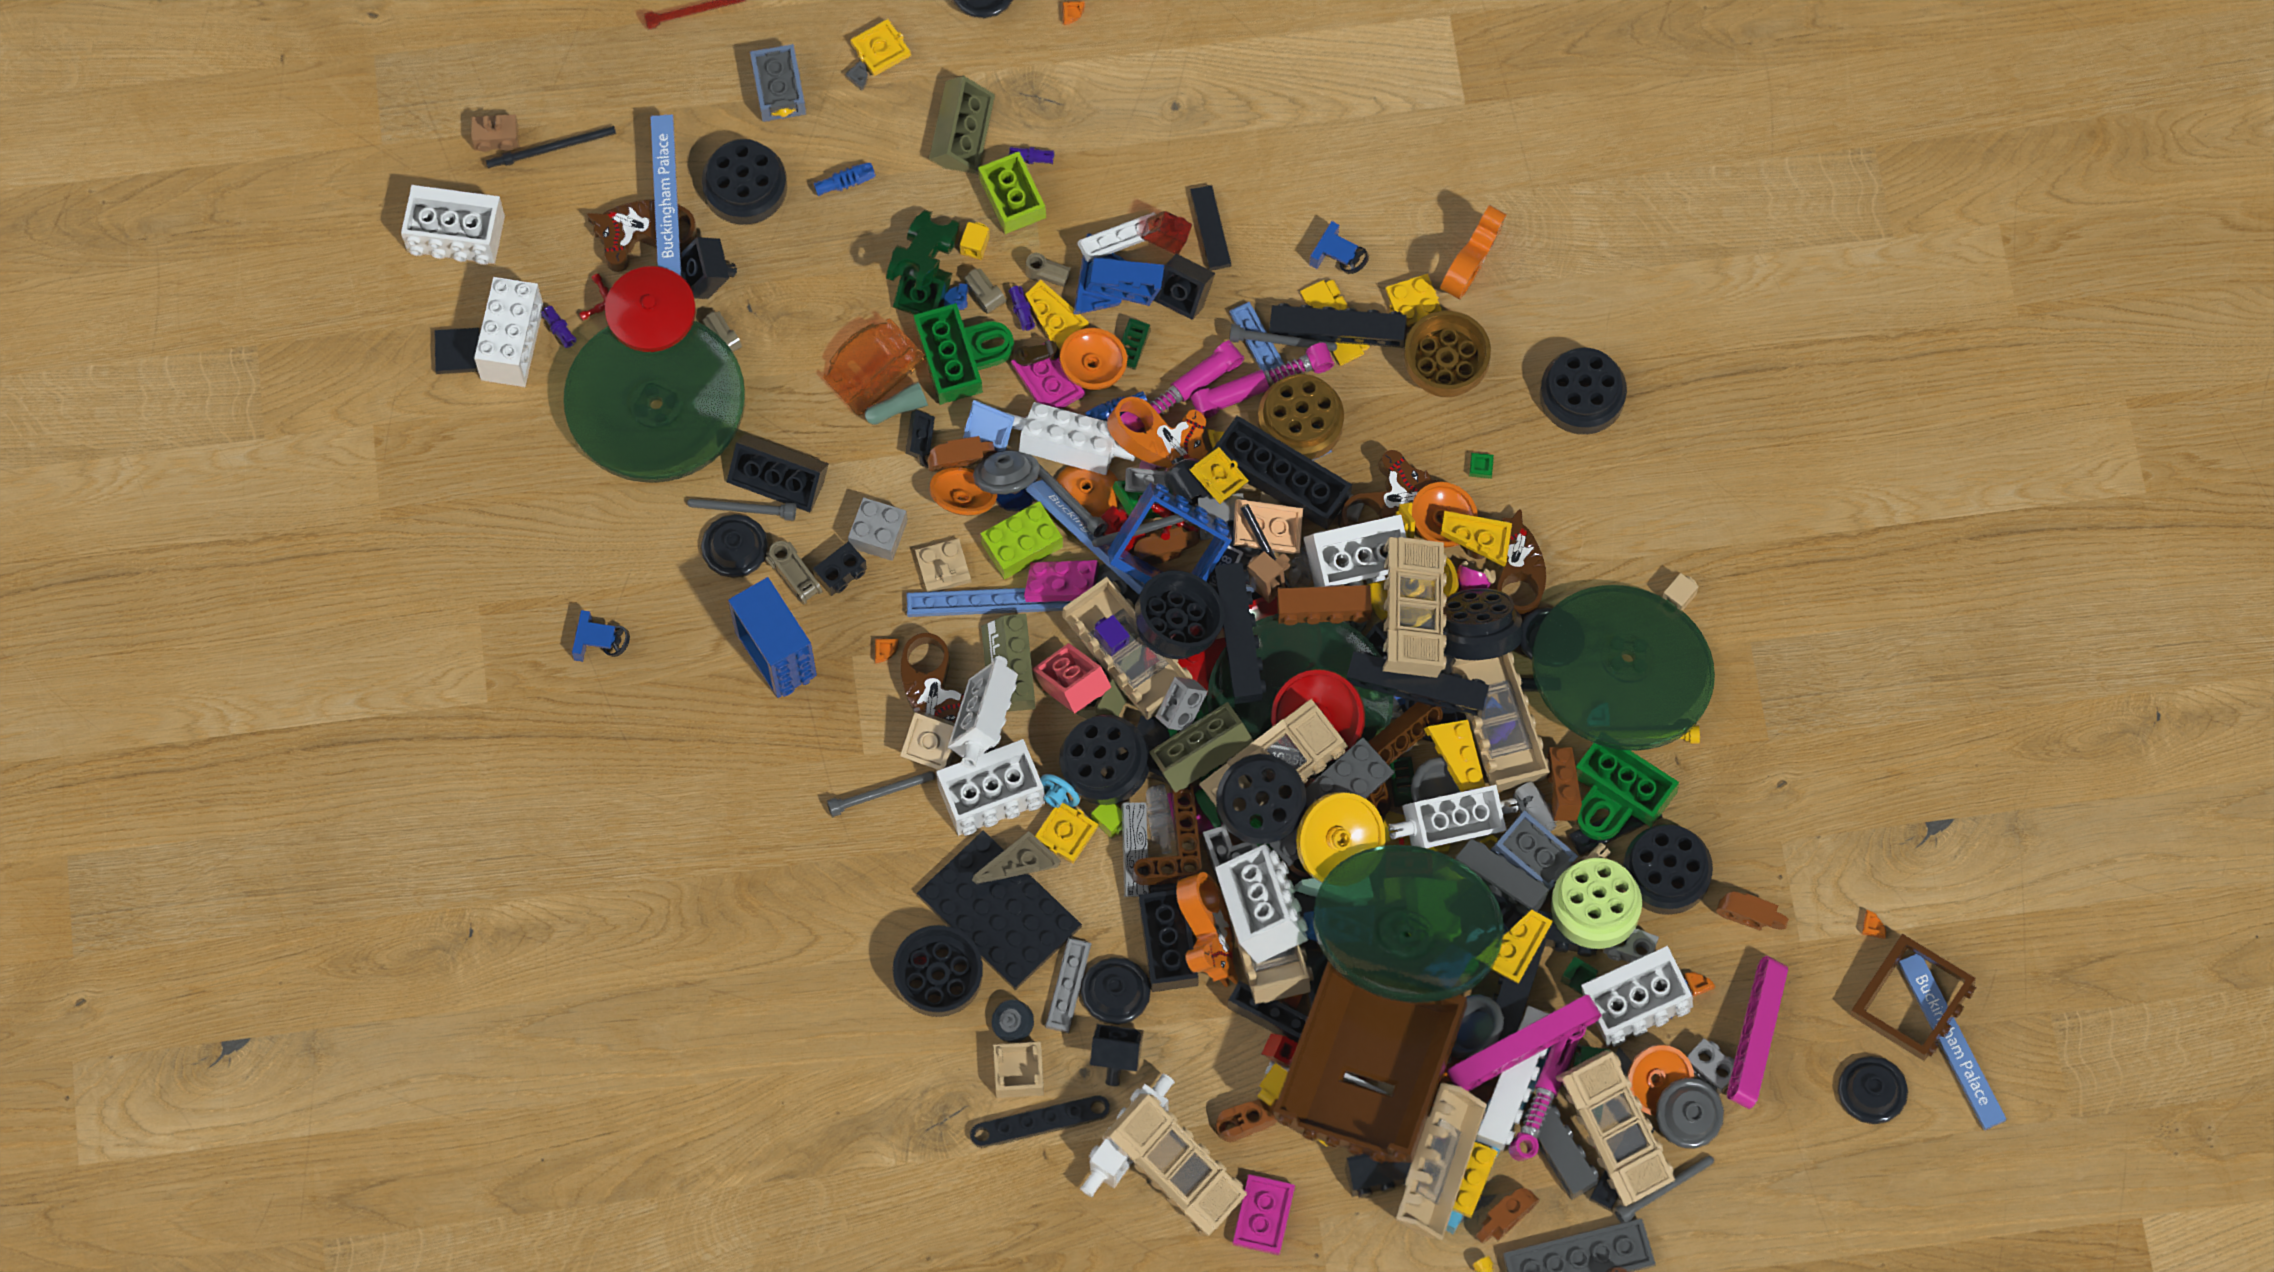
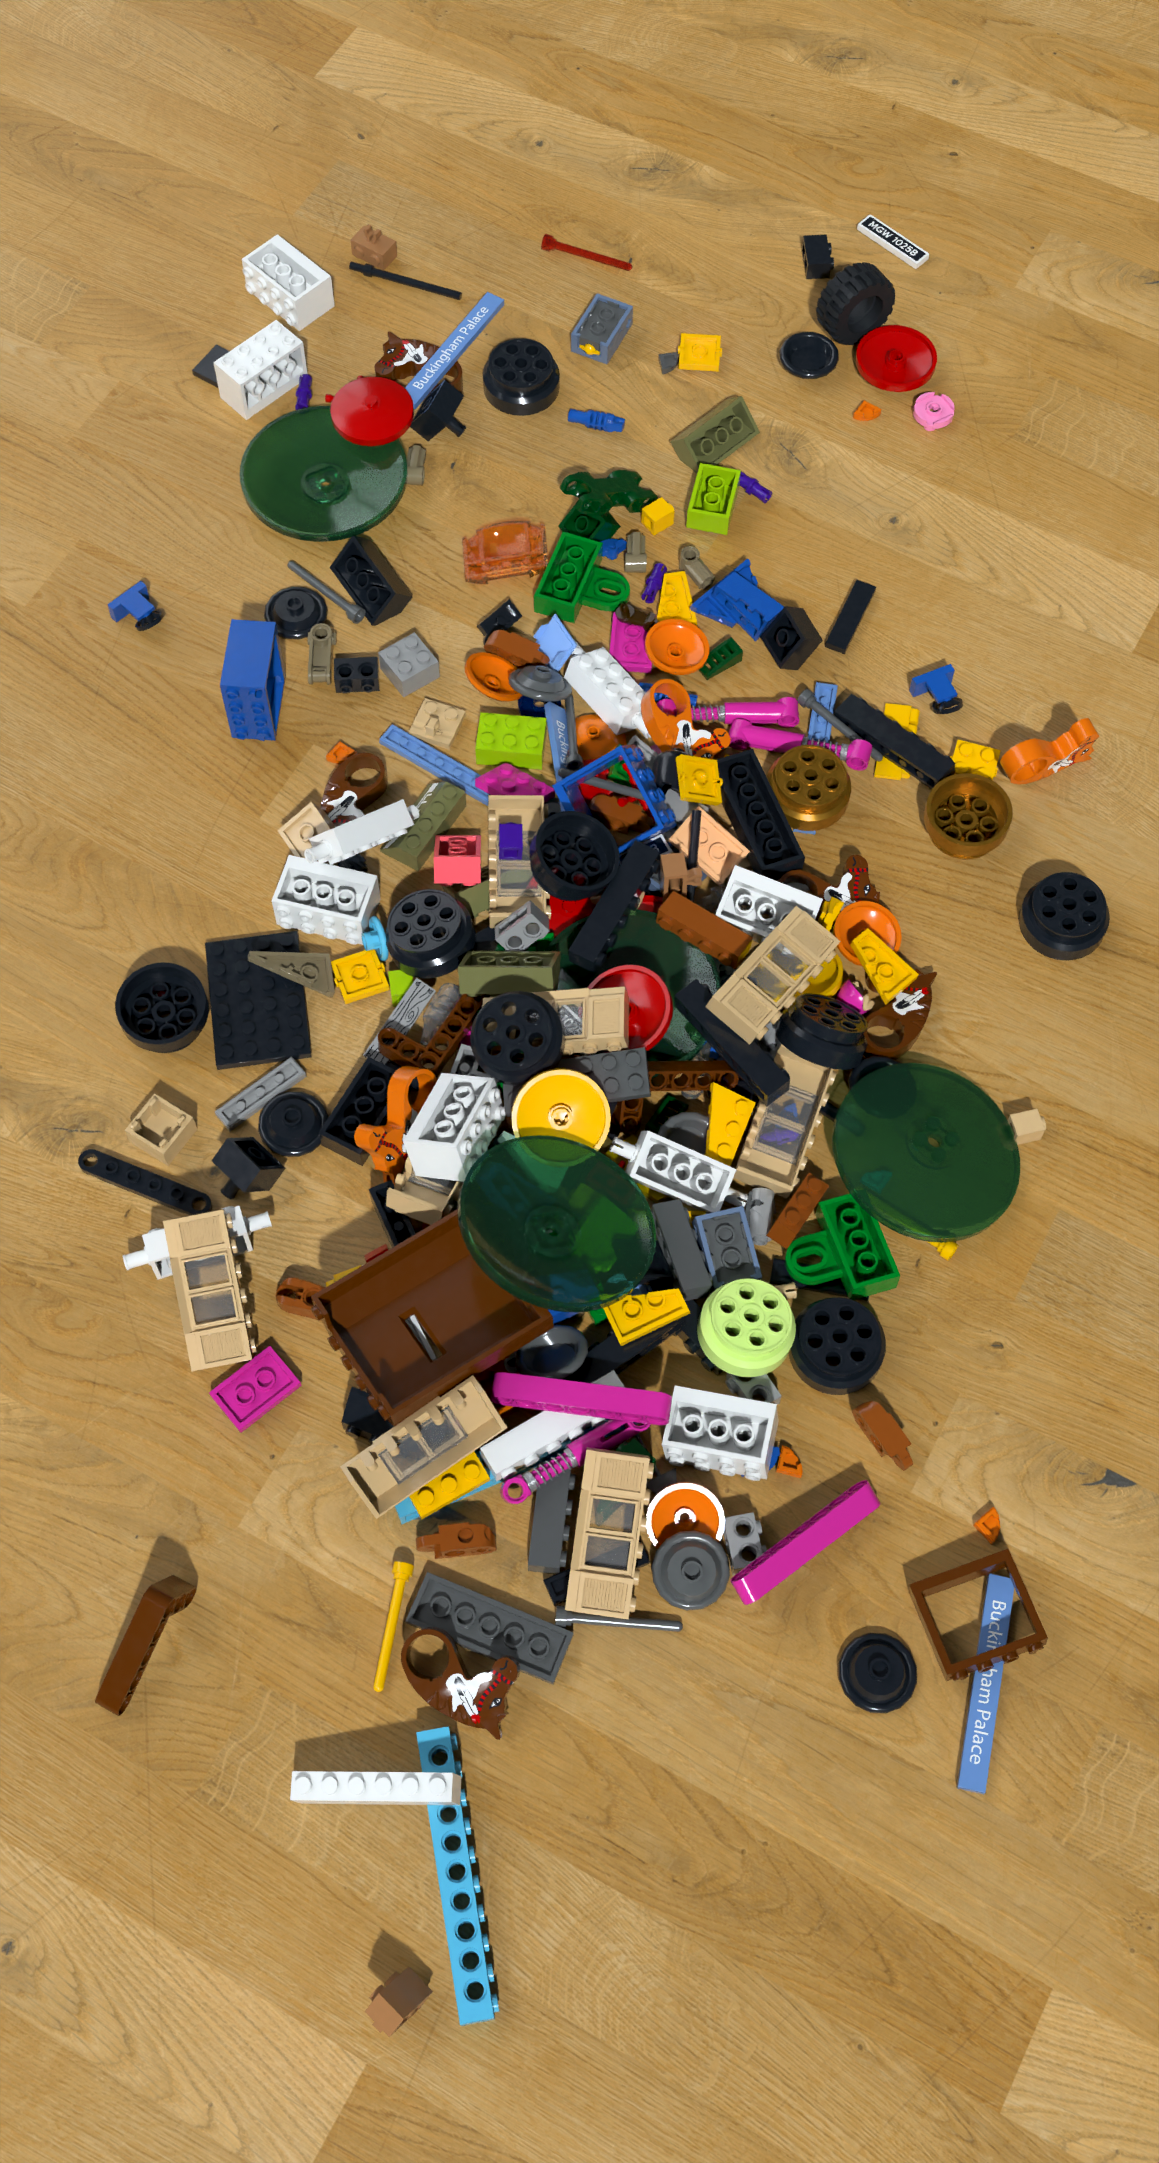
camera: 35 degrees right, 5 degrees down
(837, 806) = (202, 839): dark grey piece -> none
(903, 401) = (510, 587): sand green piece -> none
(1012, 1021) = (190, 1089): black wheel -> none
(1113, 239) = (773, 577): white tile -> none
(1167, 231) = (812, 594): clear red torso -> none
(1481, 465) = (931, 921): green tile -> none
(1578, 974) = (686, 1376): dark green panel -> none

